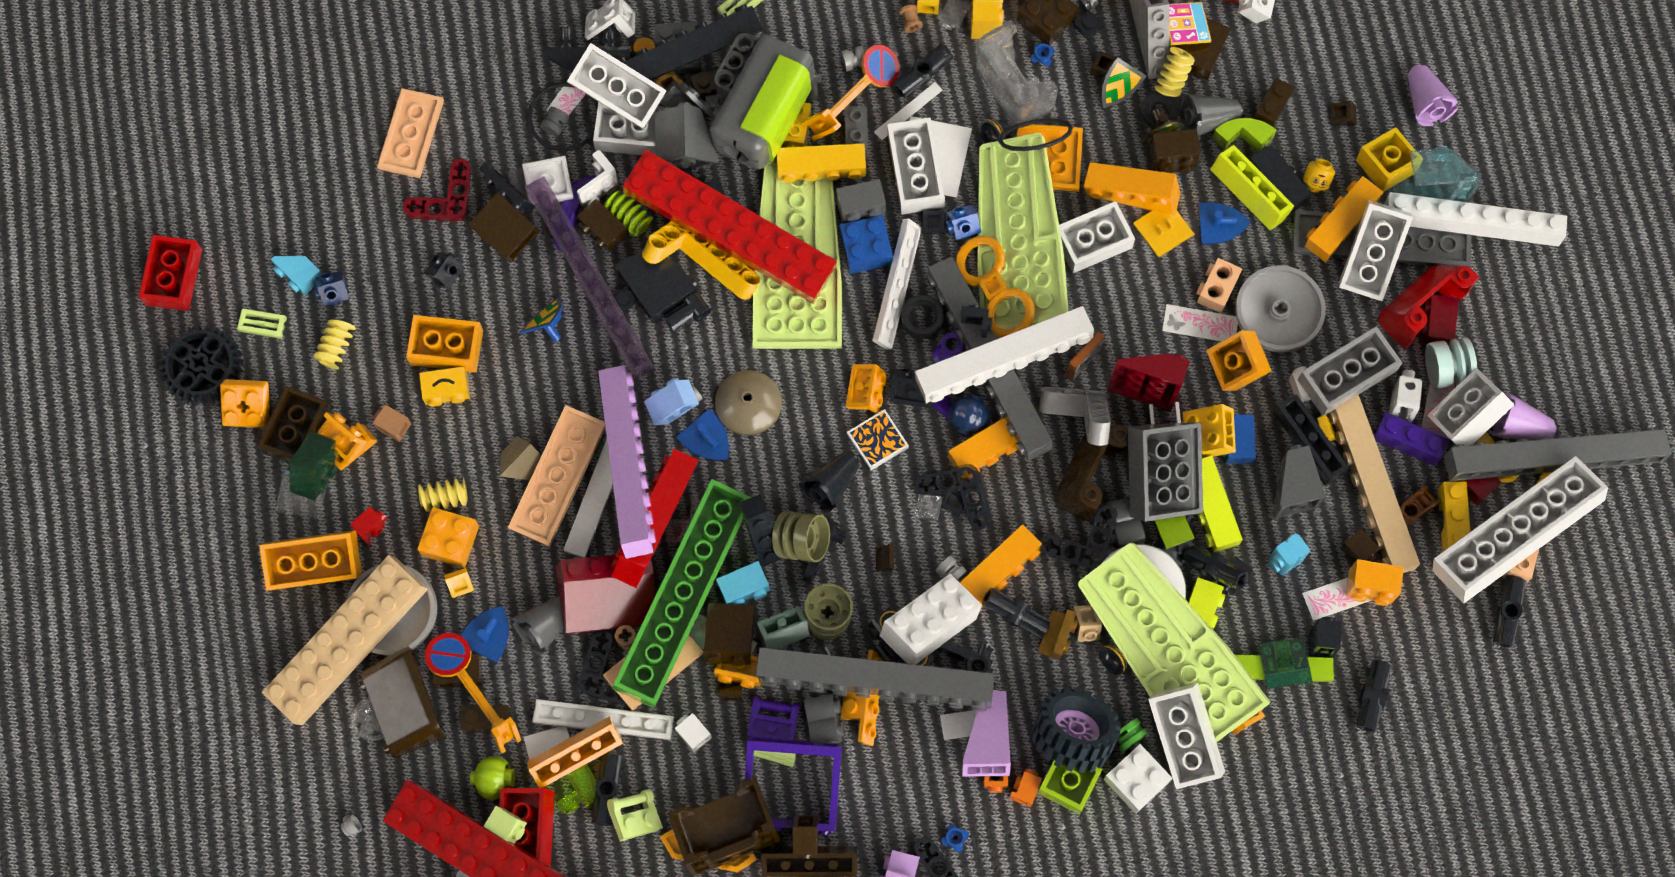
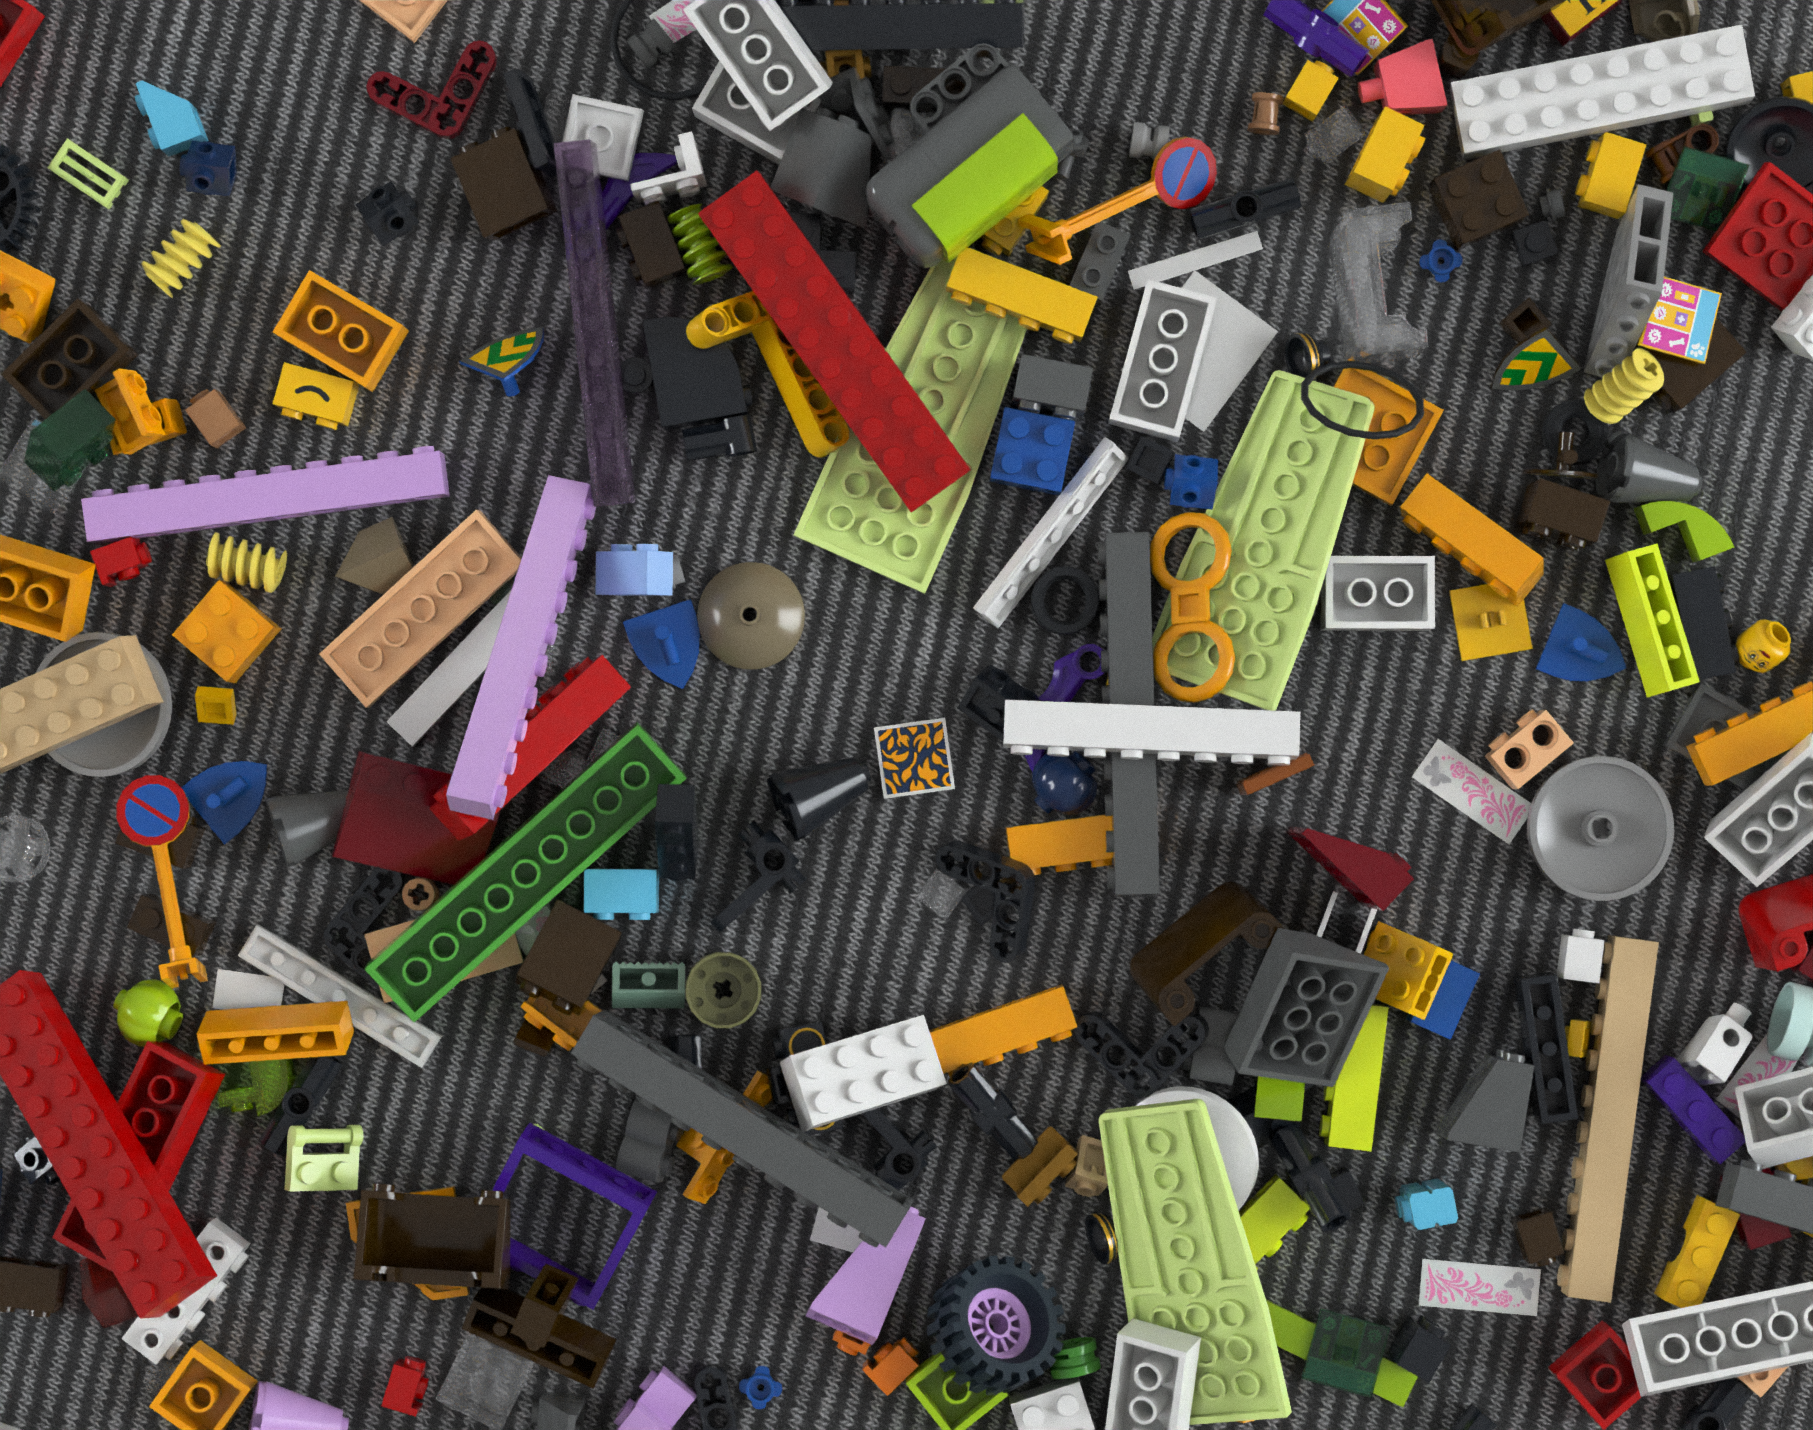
camera: 30 degrees right, 15 degrees up
(401, 703) = (60, 848): windscreen -> none
(440, 453) = (265, 497): none -> lavender brick
(505, 825) = (129, 1102): yellowish green brick -> none
(692, 732) = (456, 1073): white brick -> none
(769, 726) = (572, 1116): dark purple plate -> none
(801, 536) = (730, 868): olive wheel -> none
(866, 387) = (932, 673): light orange bracket -> none
(885, 558) = (843, 941): dark brown slope -> none
(947, 567) = (933, 1012): light grey wheel -> none
(977, 316) = (1136, 645): black bracket -> none
(1081, 403) = (1243, 845): light grey beam -> none
(1238, 360) = (1498, 883): light orange brick -> none
(1274, 102) = (1752, 501): dark brown brick -> none
(1349, 371) = (1651, 979): light grey brick -> none
(1374, 582) = (1538, 1305): light orange brick -> none
(1419, 503) = (1659, 1208): reddish brown piece -> none
(1435, 609) = (1599, 1374): none -> red brick

